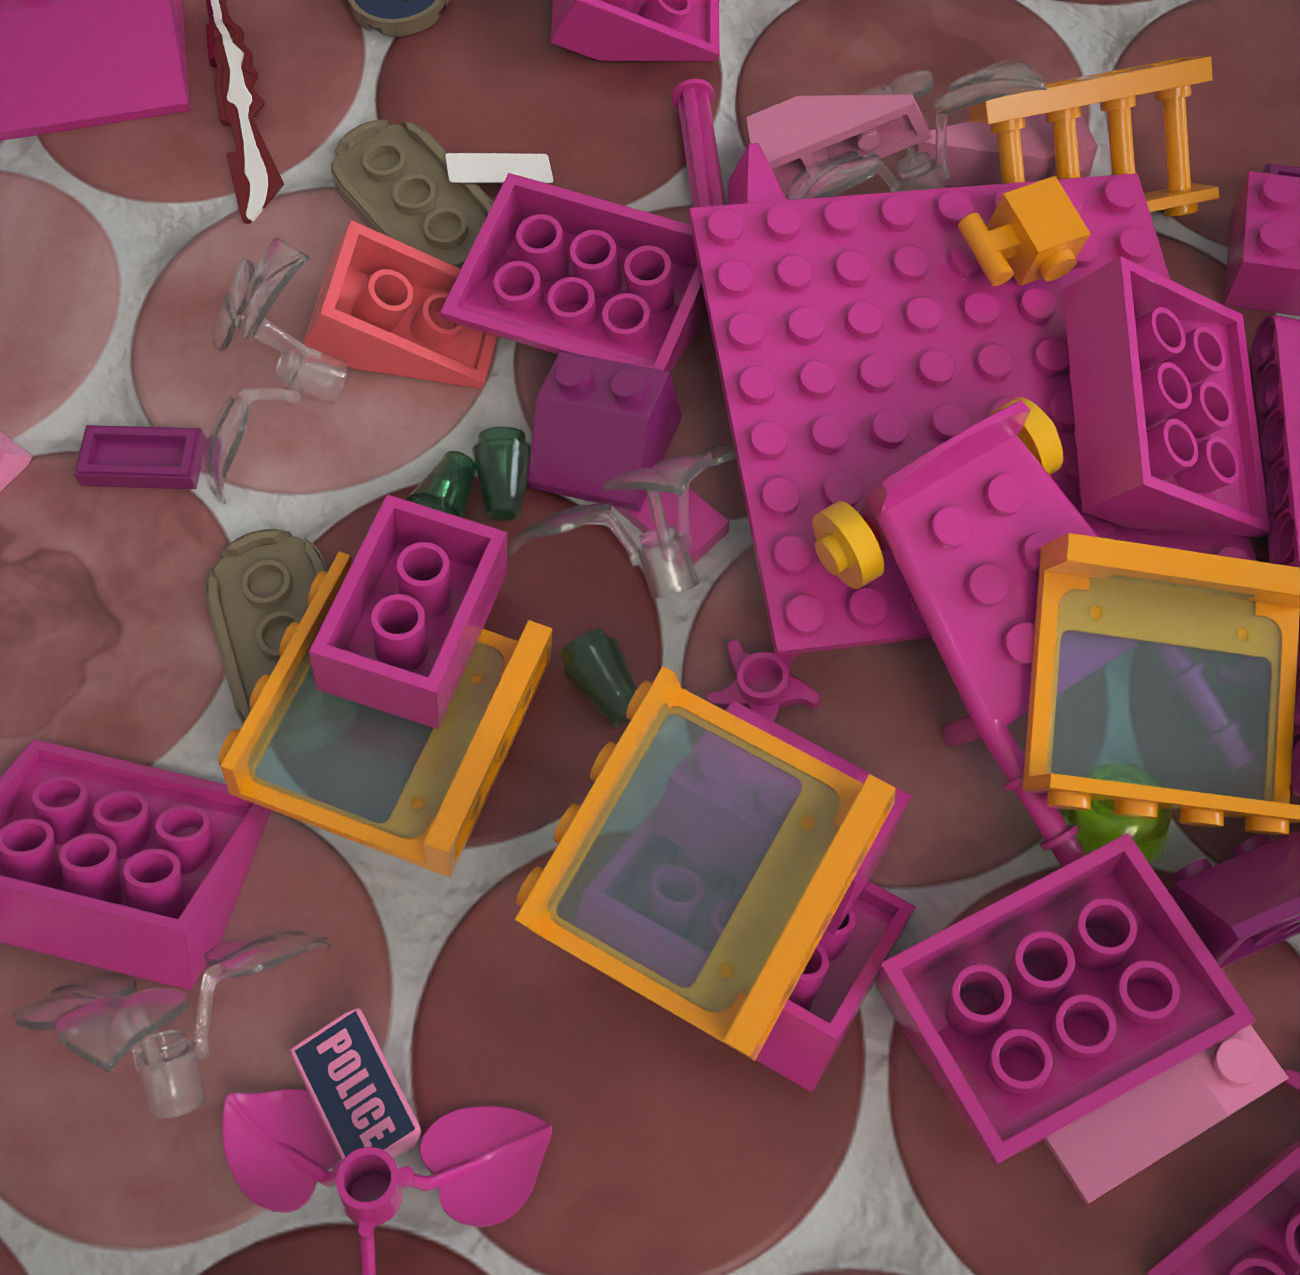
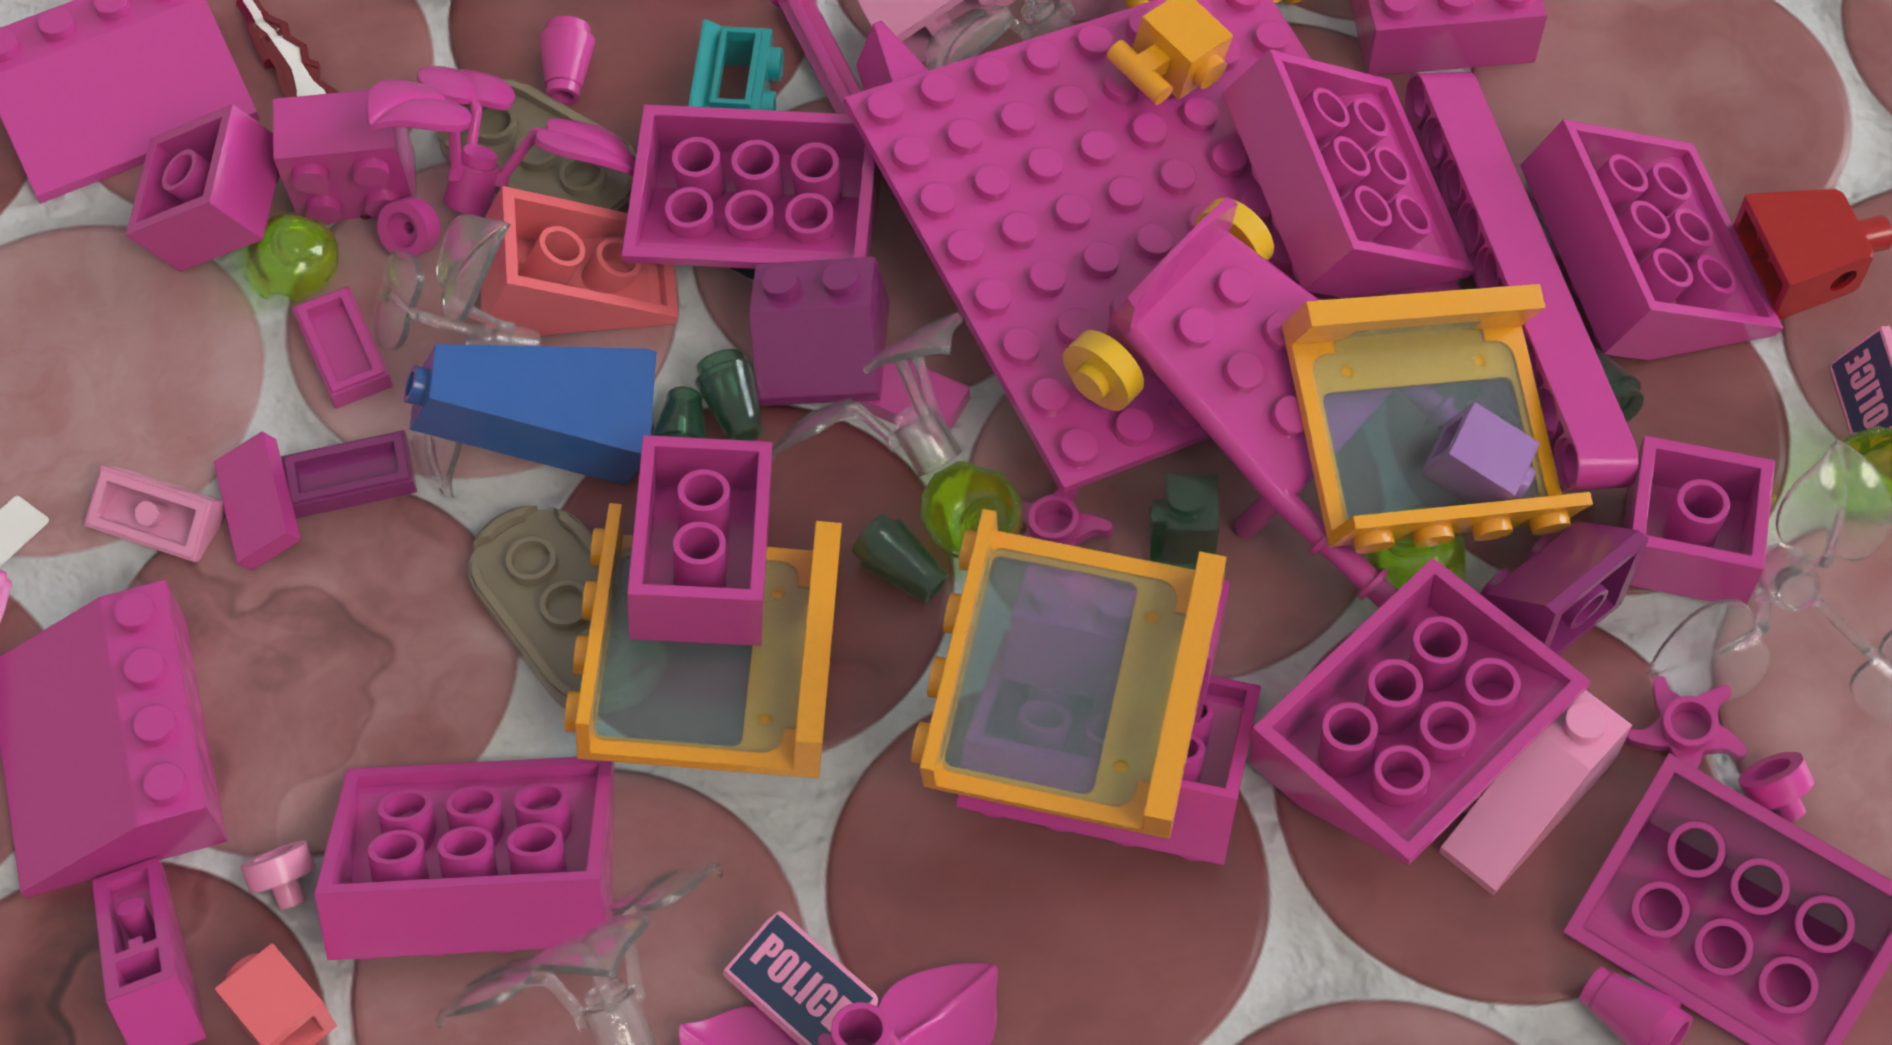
camera: 20 degrees left, 5 degrees down
(48, 462) = (256, 501): none -> dark pink tile
(105, 161) = (205, 189): none -> dark pink brick
(165, 241) = (293, 257): none -> clear neon green hair
(179, 336) = (342, 347): none -> dark pink tile
(232, 158) = (334, 162): none -> dark pink brick
(268, 225) = (409, 226): none -> dark pink tile
(294, 130) = (474, 173): none -> dark pink plant
(311, 434) = (540, 403): none -> blue slope
(468, 113) = (565, 57): none -> dark pink cone
(496, 166) = (615, 103): white sticker -> none
(620, 137) = (739, 47): none -> teal window
(687, 641) = (956, 501): none -> clear neon green hair
(890, 717) = (1184, 520): none -> brick
(1212, 742) = (1481, 457): none -> medium lavender brick

